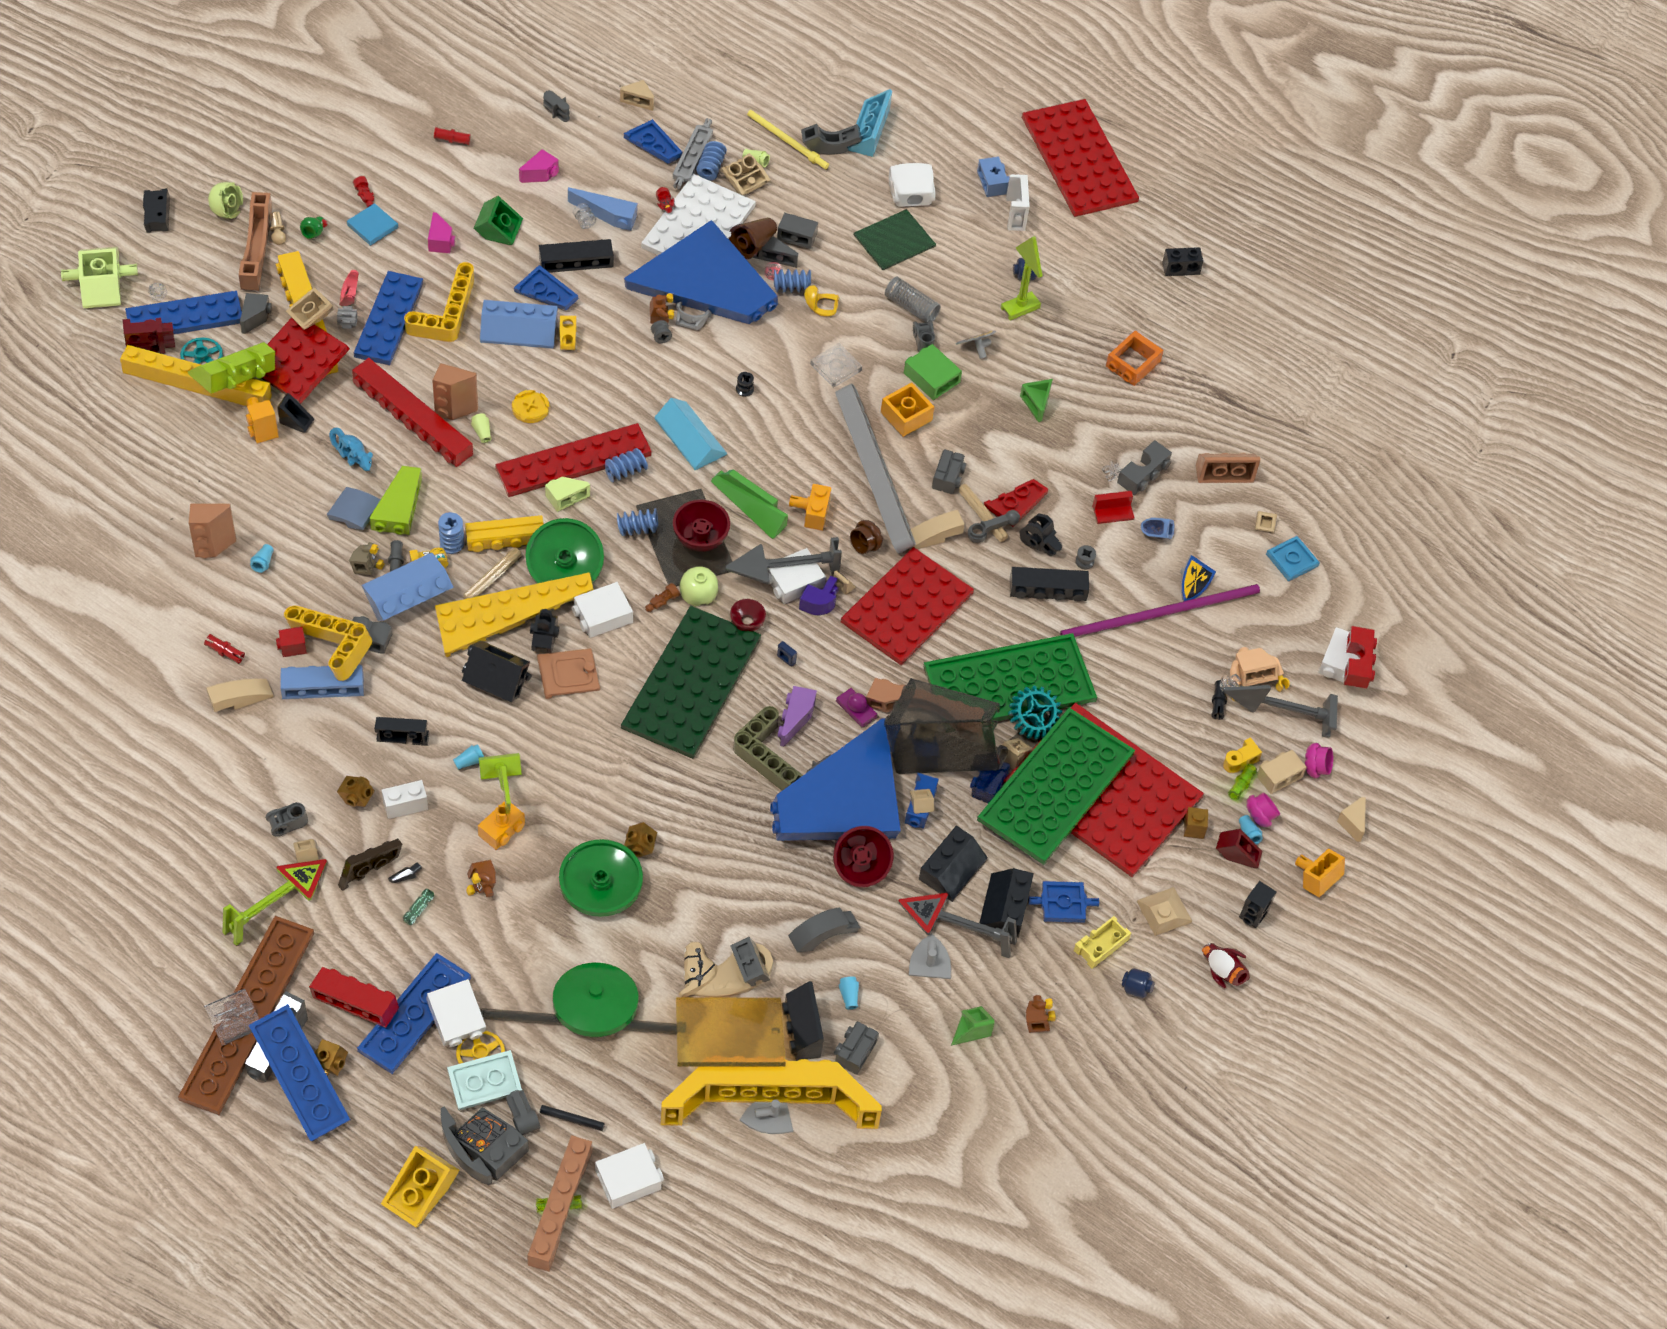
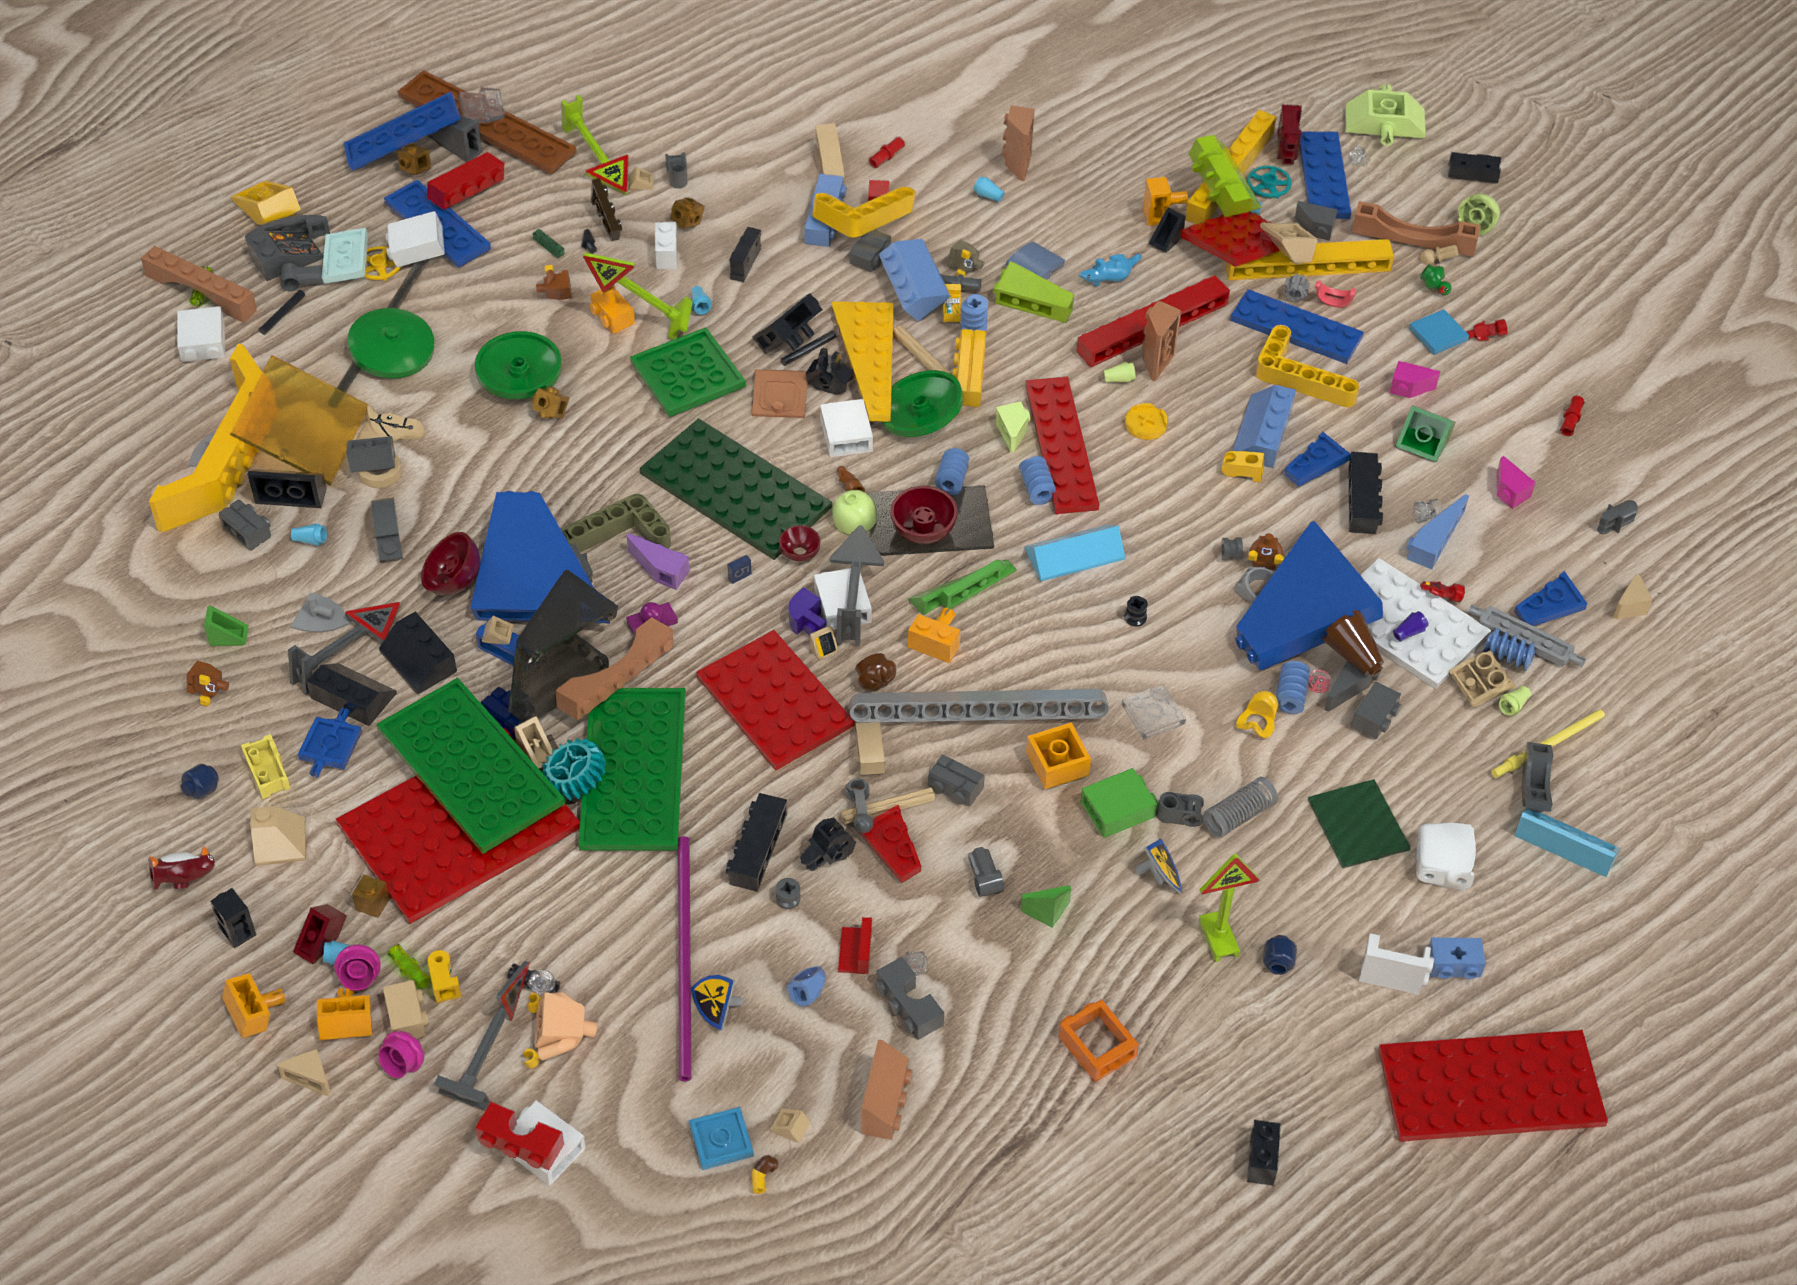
camera: 110 degrees right, 5 degrees down
(565, 746) = (687, 371): none -> green plate
(714, 212) = (1411, 626): none -> dark purple cone
(1026, 439) = (986, 877): none -> dark grey piece
(1304, 806) = (344, 1016): none -> light orange brick
(1308, 529) = (759, 1171): none -> arm

